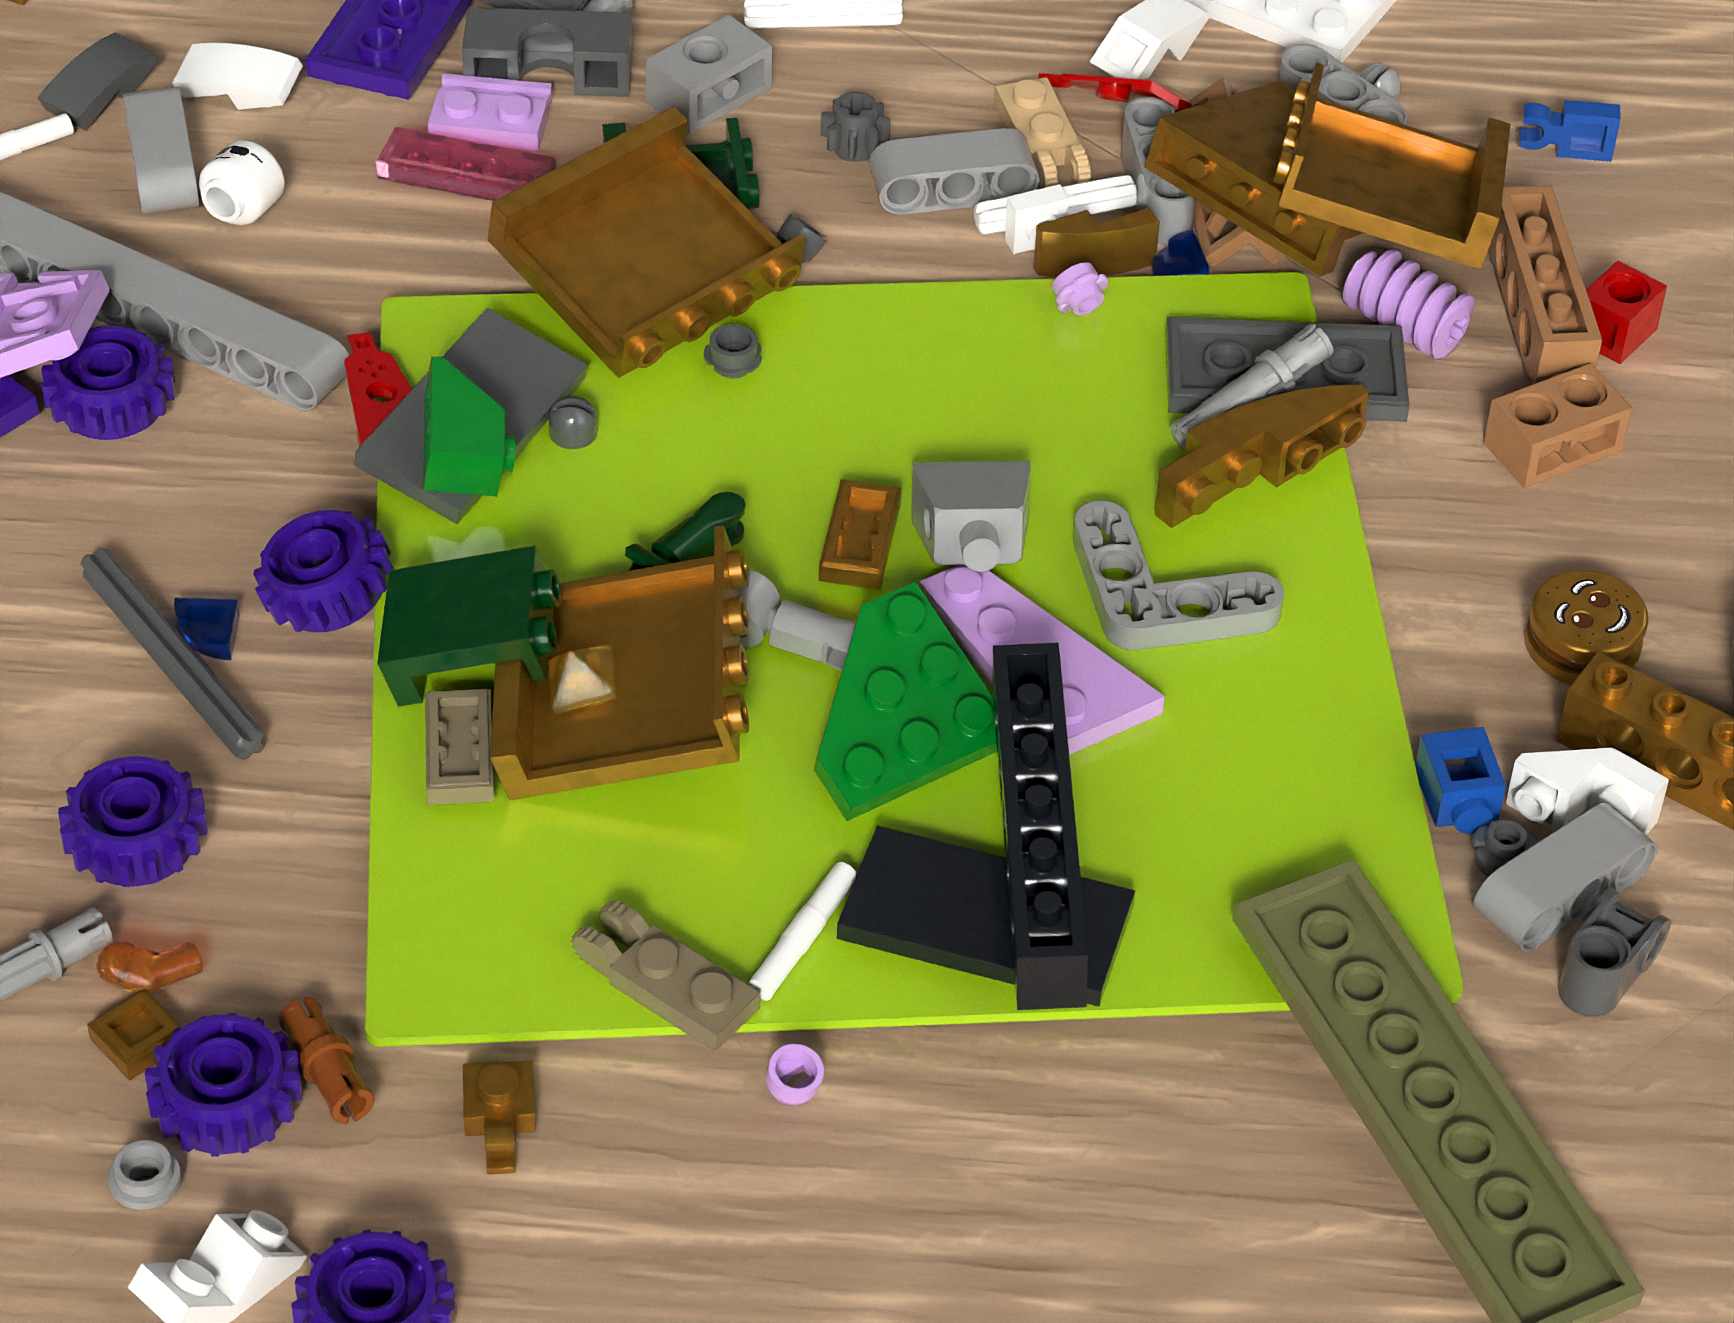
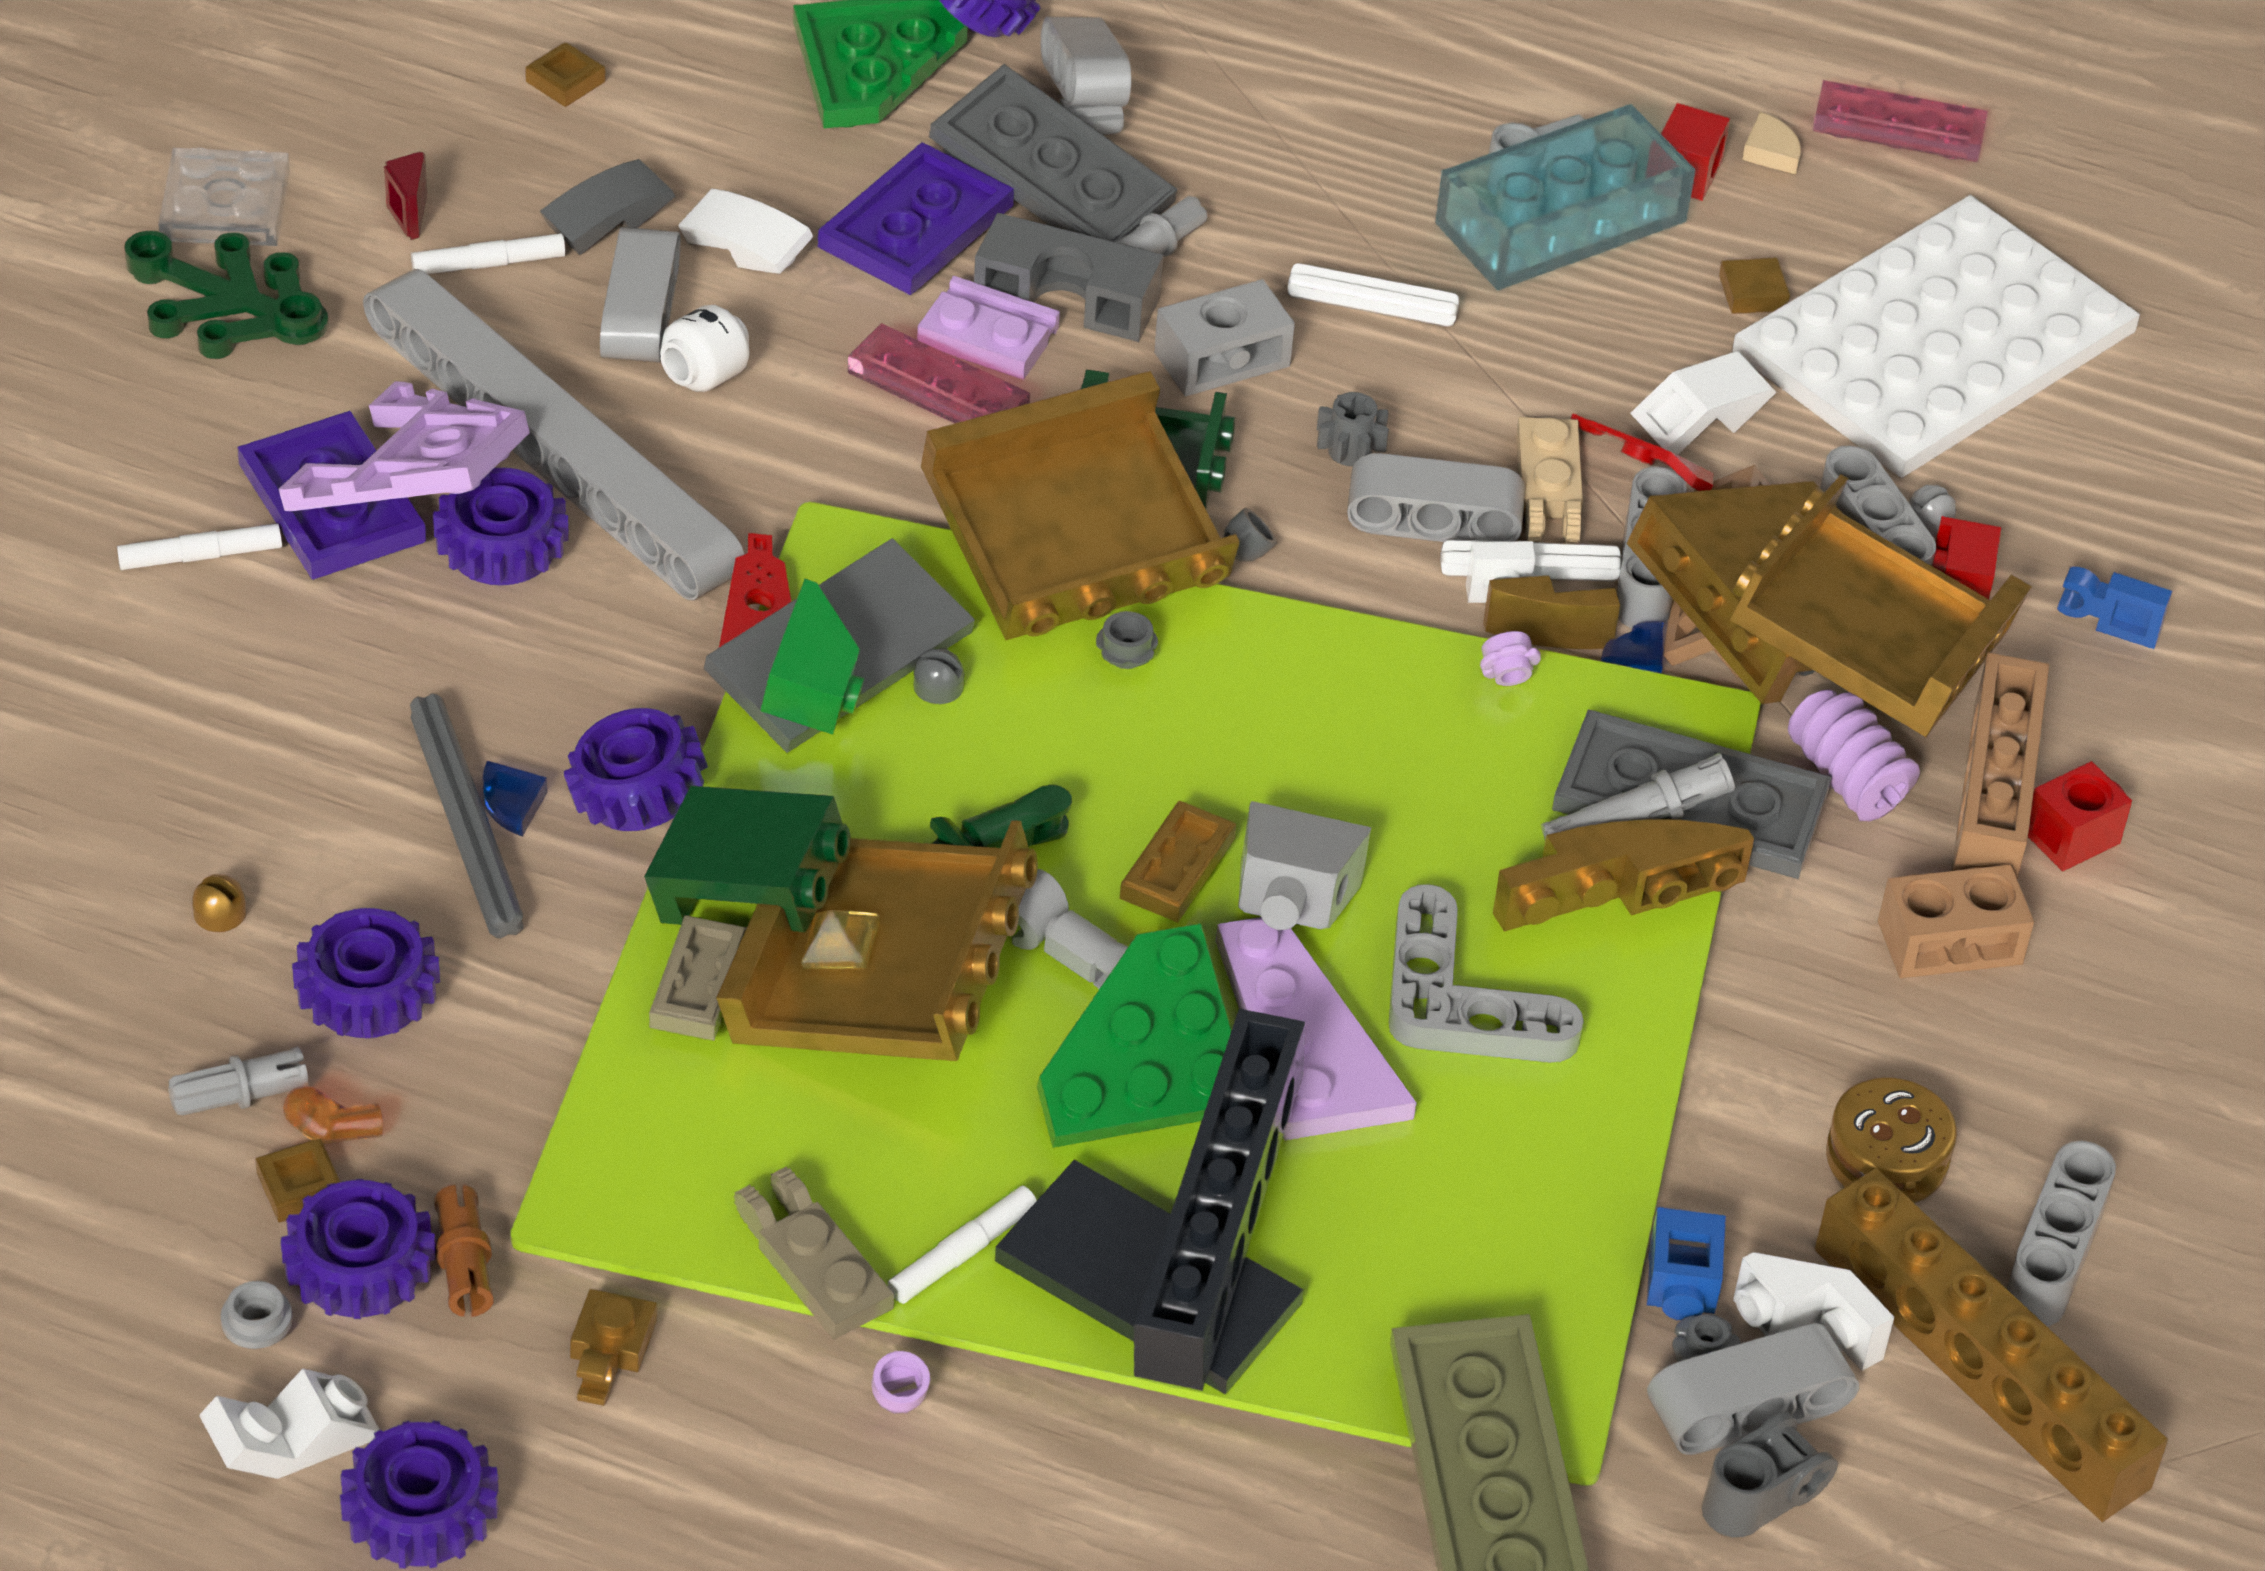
camera: 15 degrees right, 0 degrees up
(1434, 109) = (1967, 553): none -> red brick

